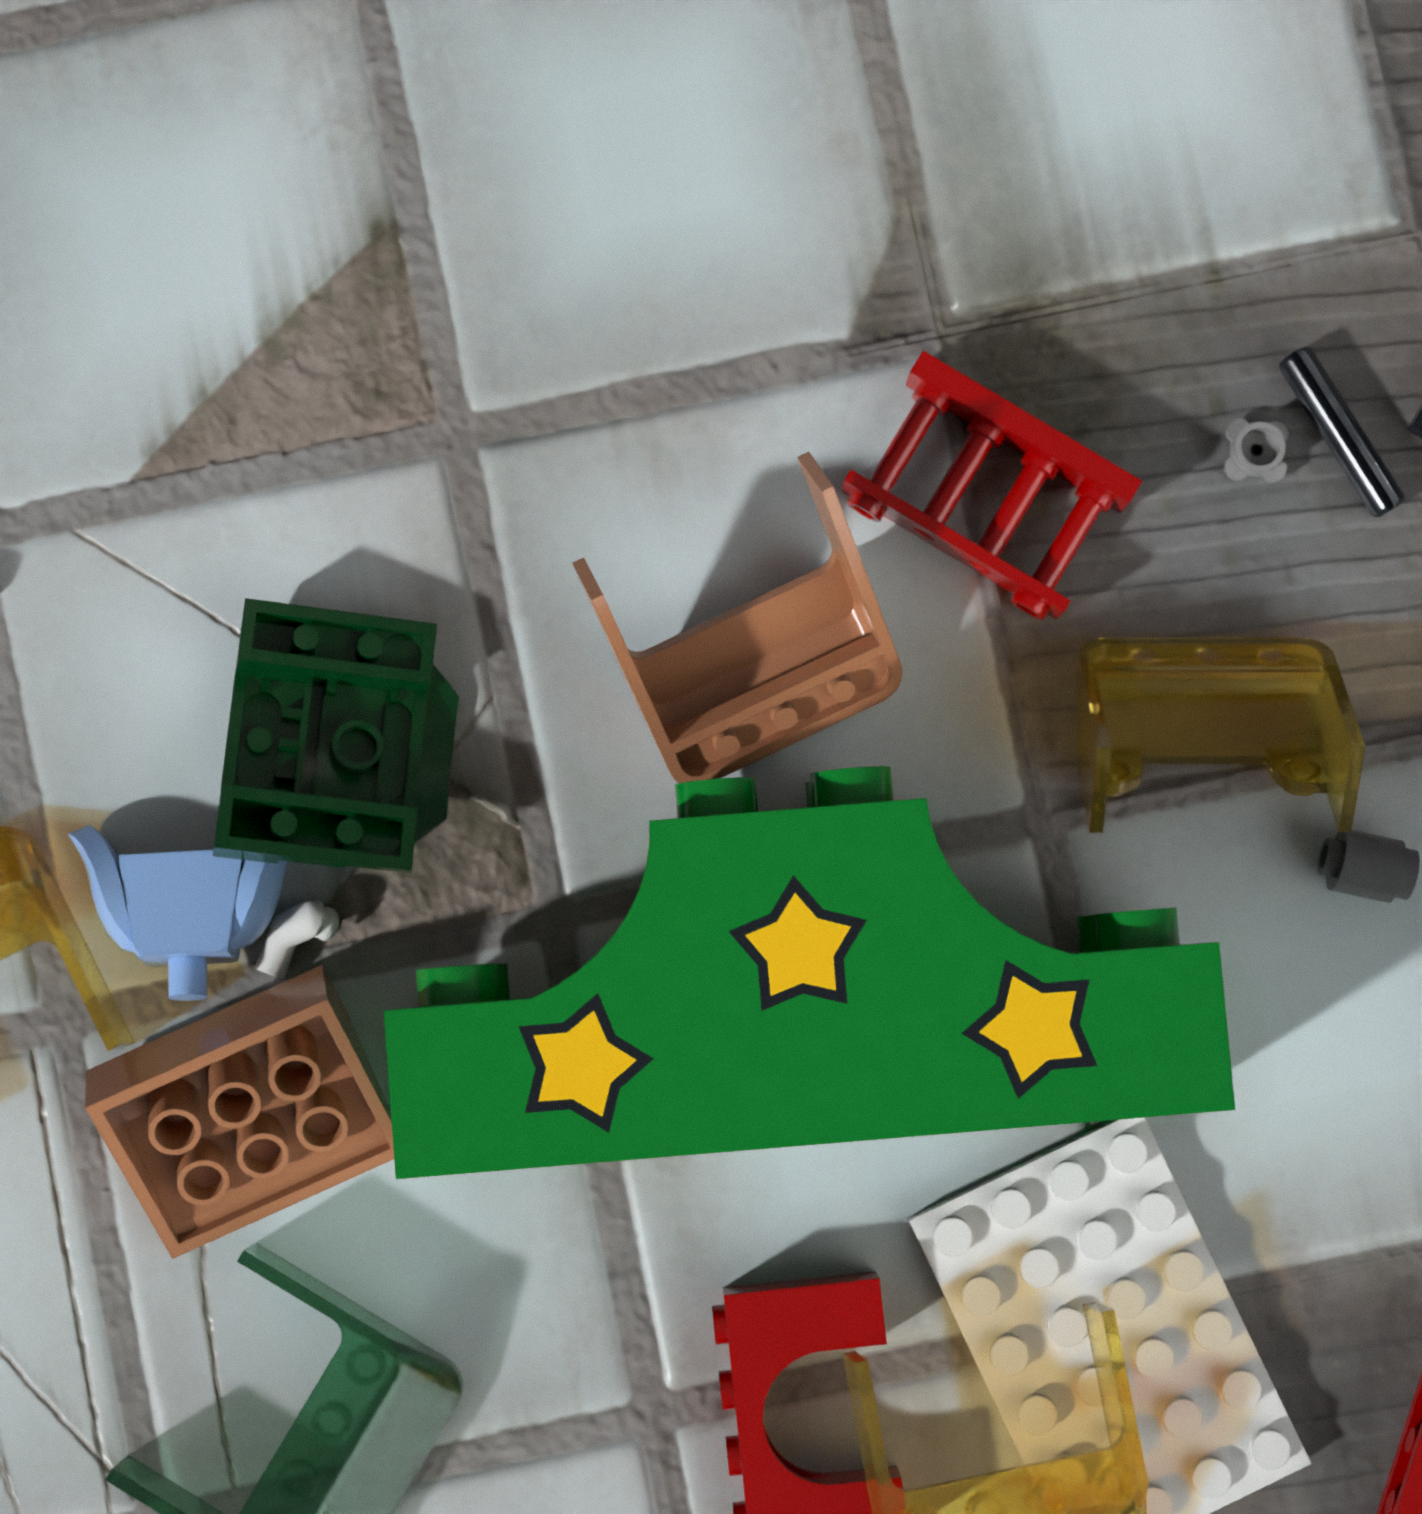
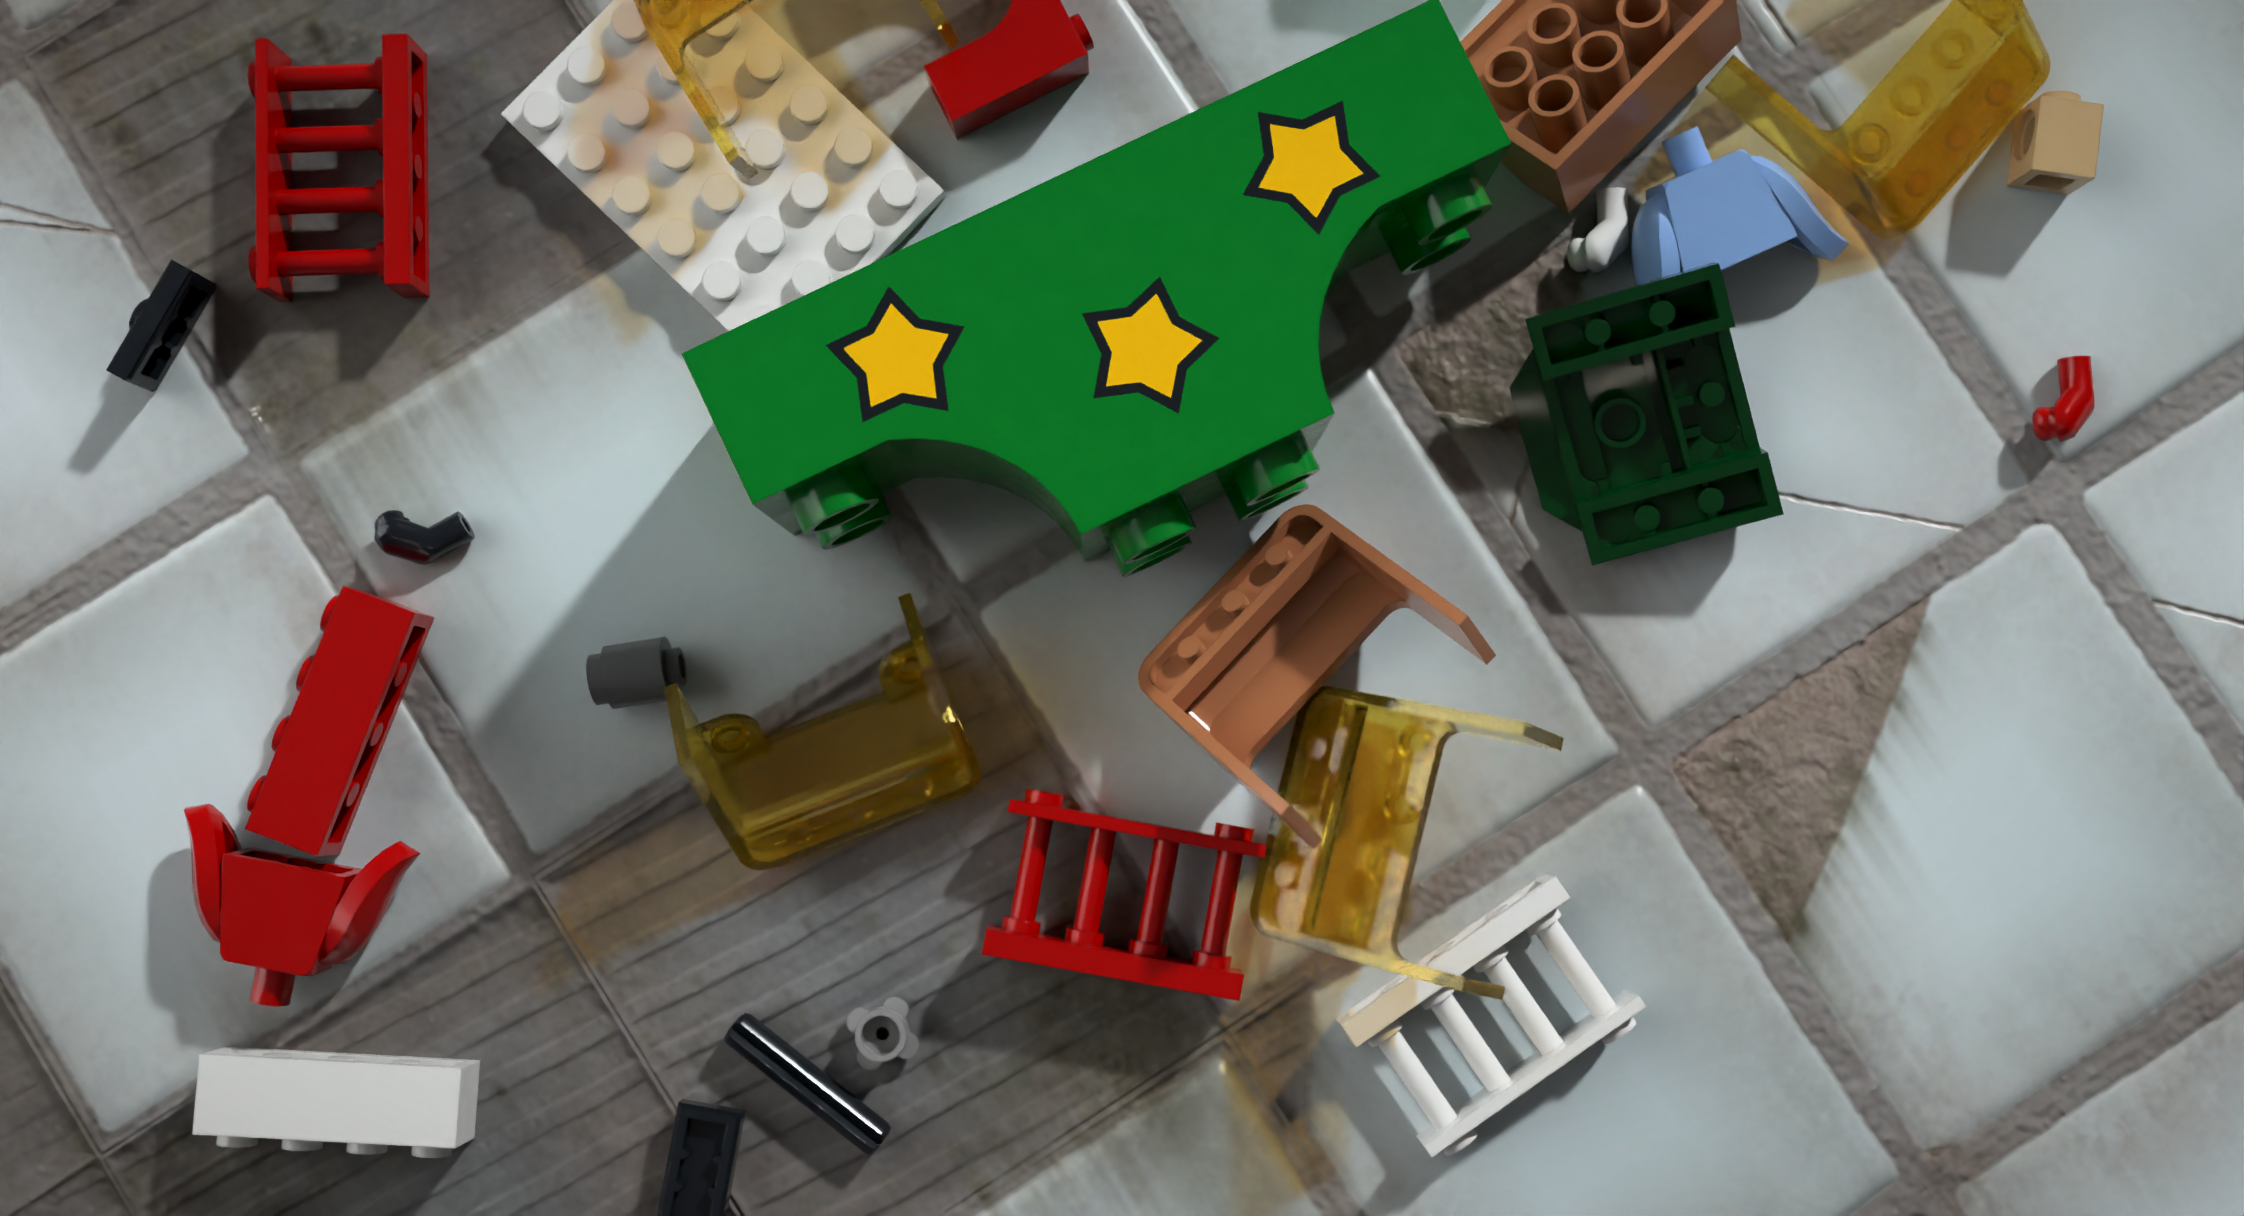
camera: 160 degrees right, 0 degrees up
(678, 315) = (1483, 948): none -> white fence
(738, 491) = (1364, 783): none -> clear yellow windscreen

